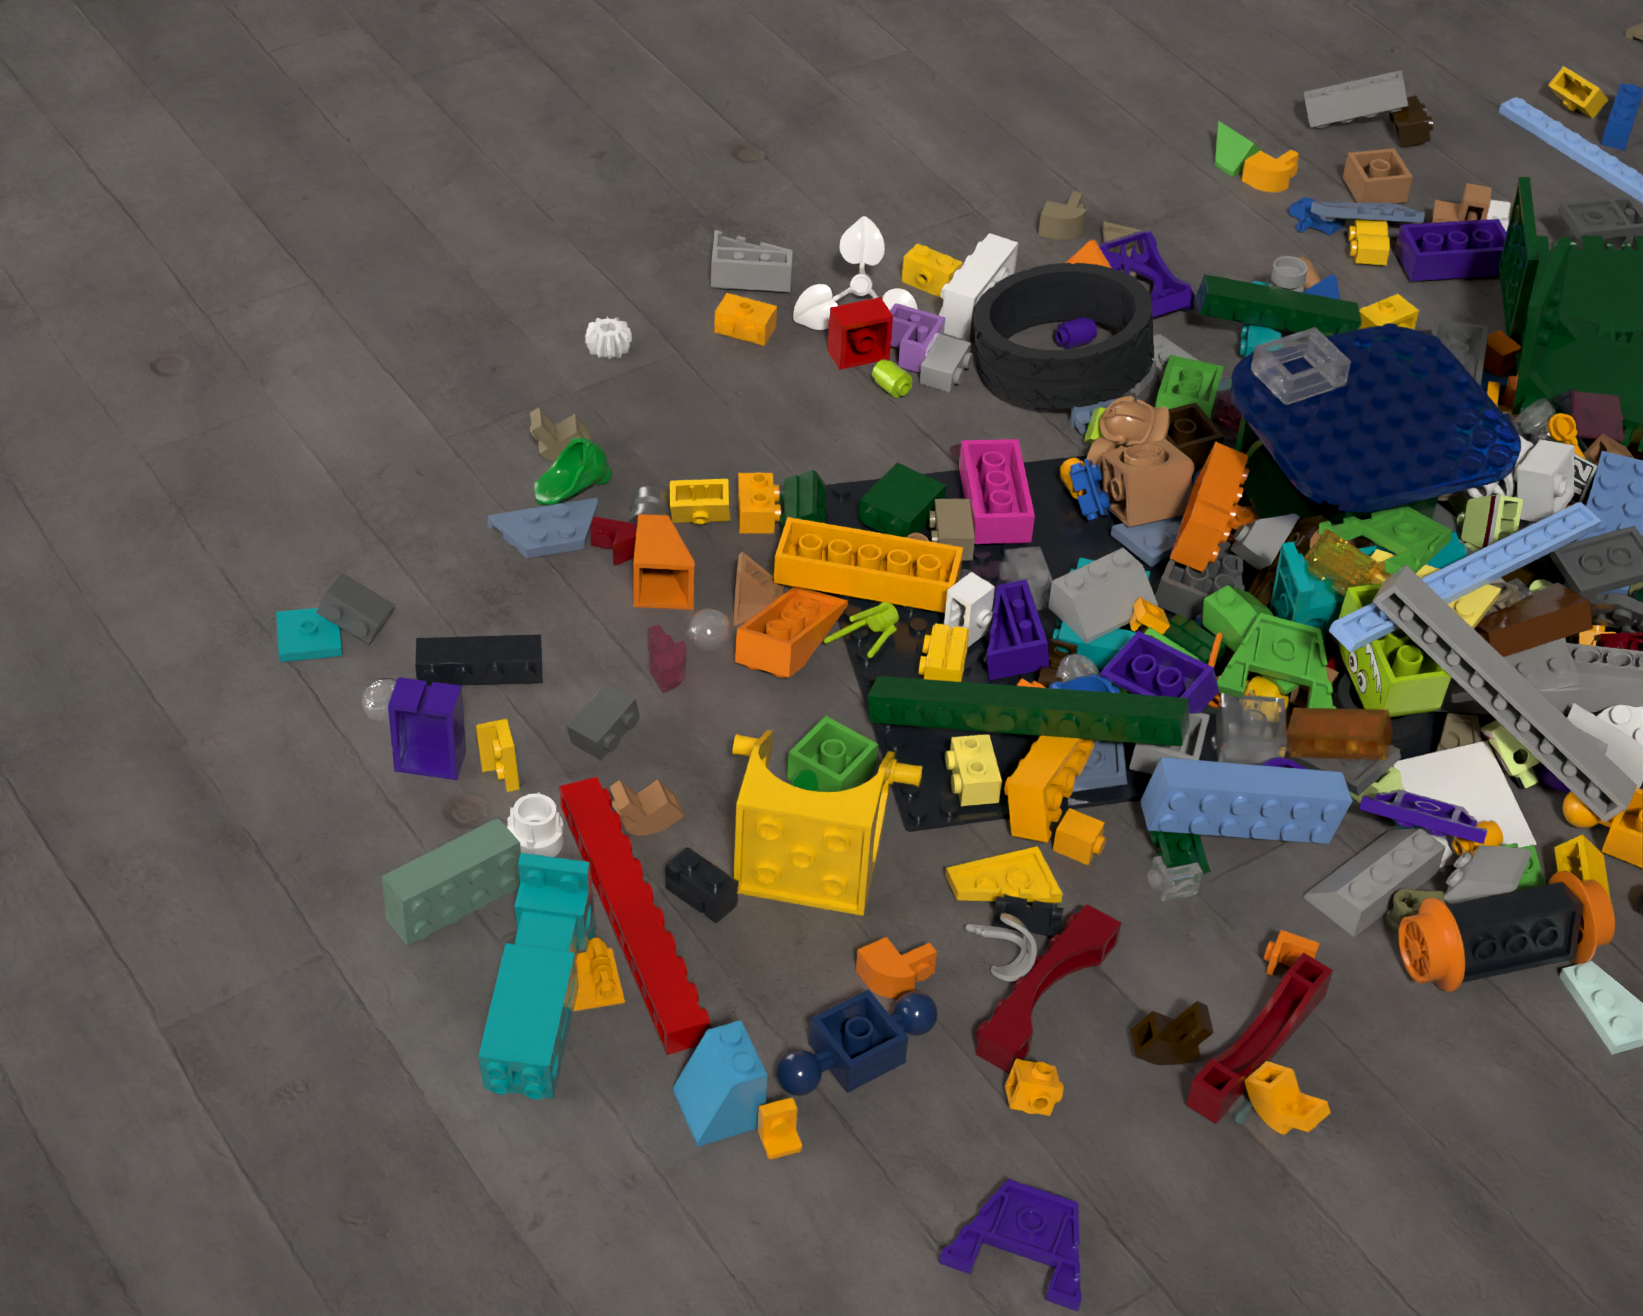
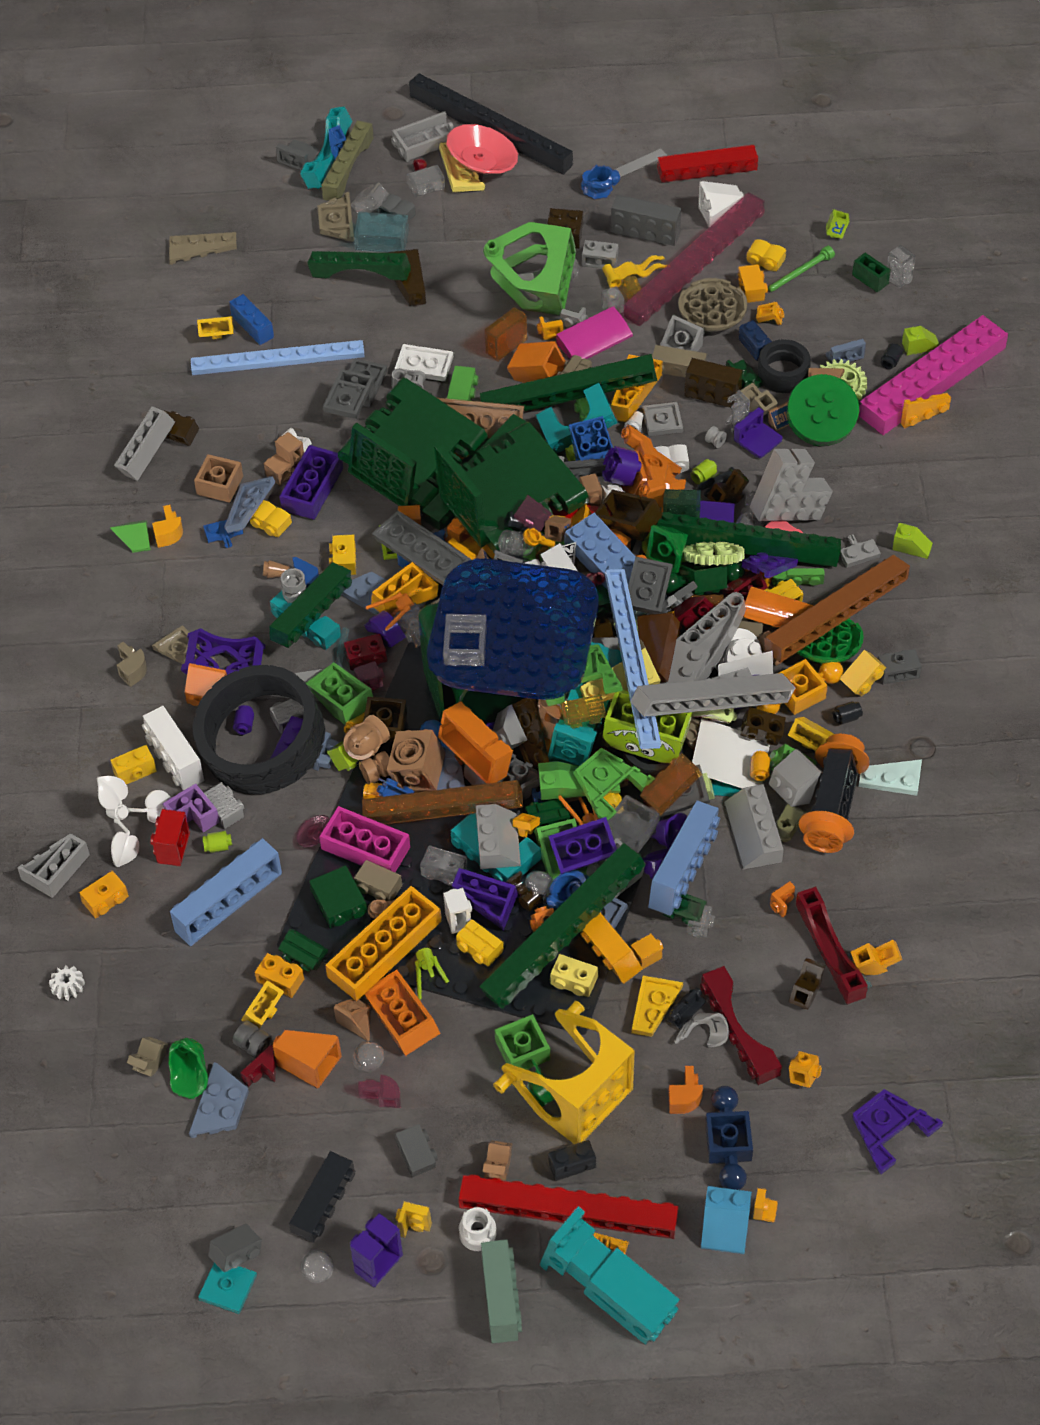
camera: 55 degrees left, 10 degrees up
(826, 406) = (226, 892): none -> medium blue brick
(1108, 526) = (442, 802): none -> clear orange brick
(1436, 815) = (739, 778): dark purple wing -> none
(1547, 814) = (758, 726): none -> dark brown brick

